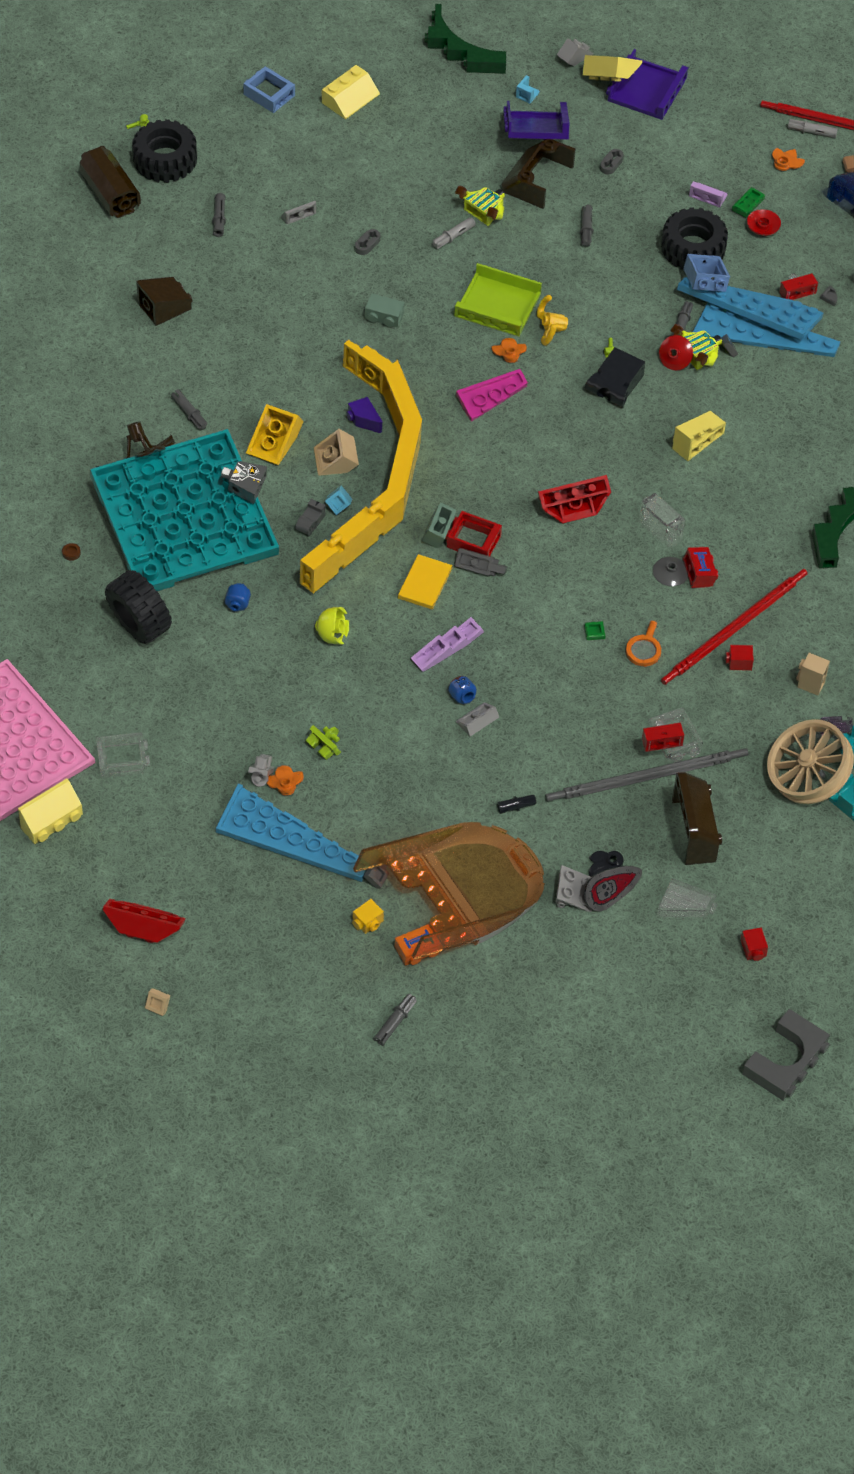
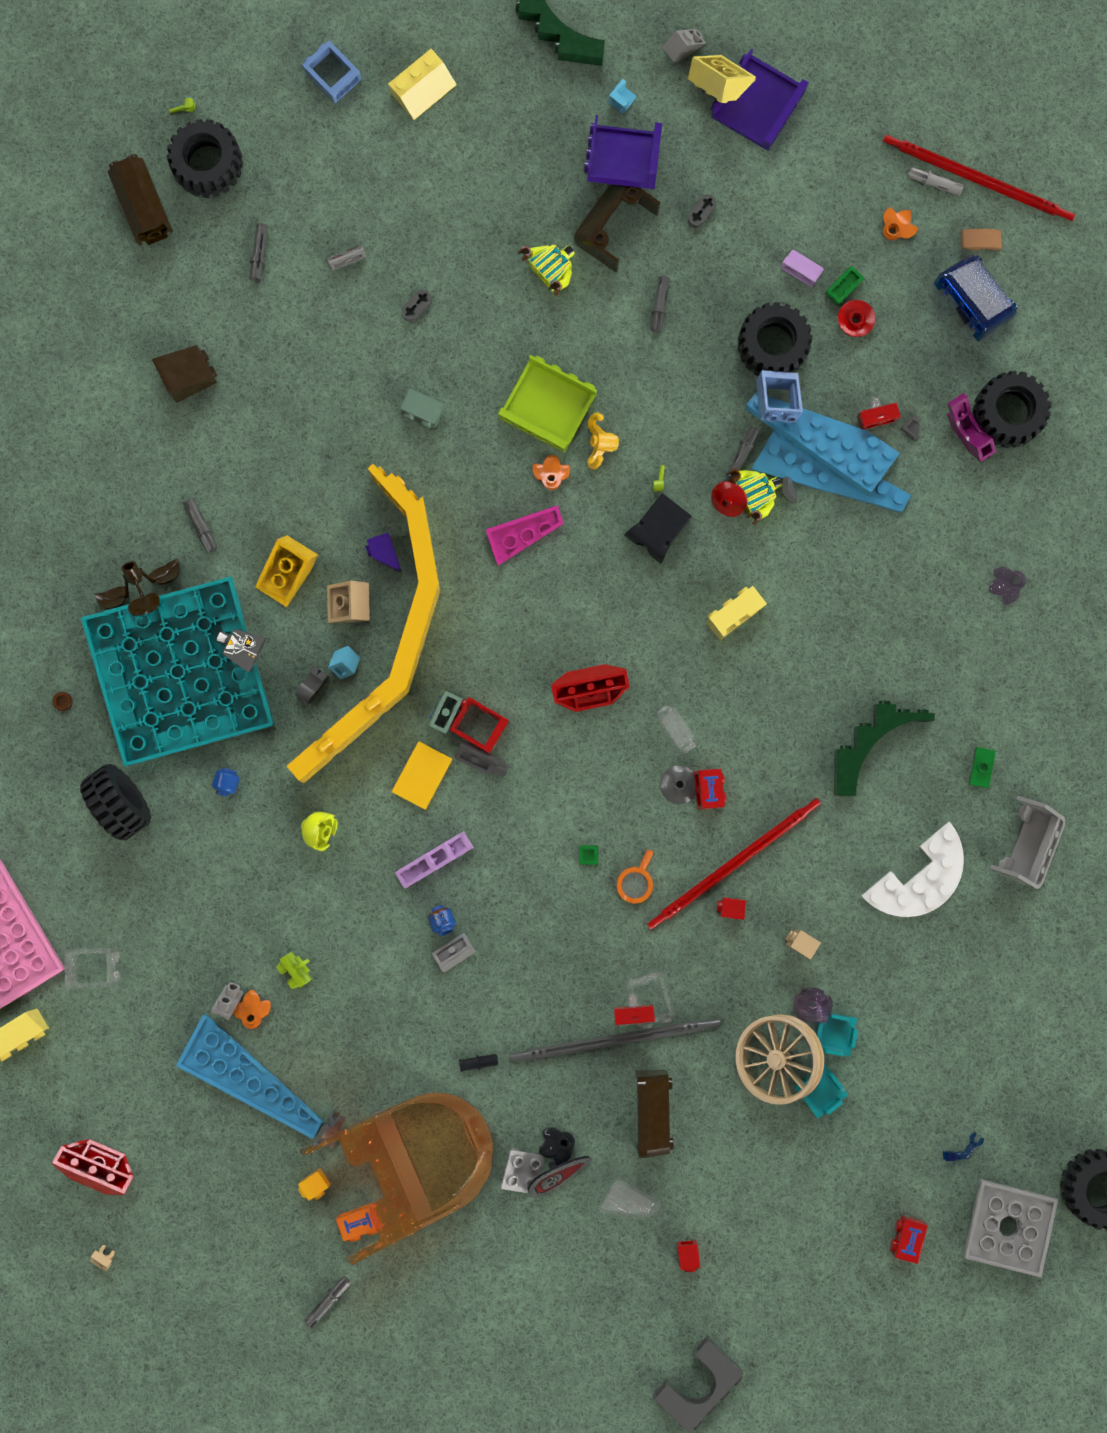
camera: 10 degrees right, 30 degrees up
(450, 235) = (512, 301): light grey axle -> none

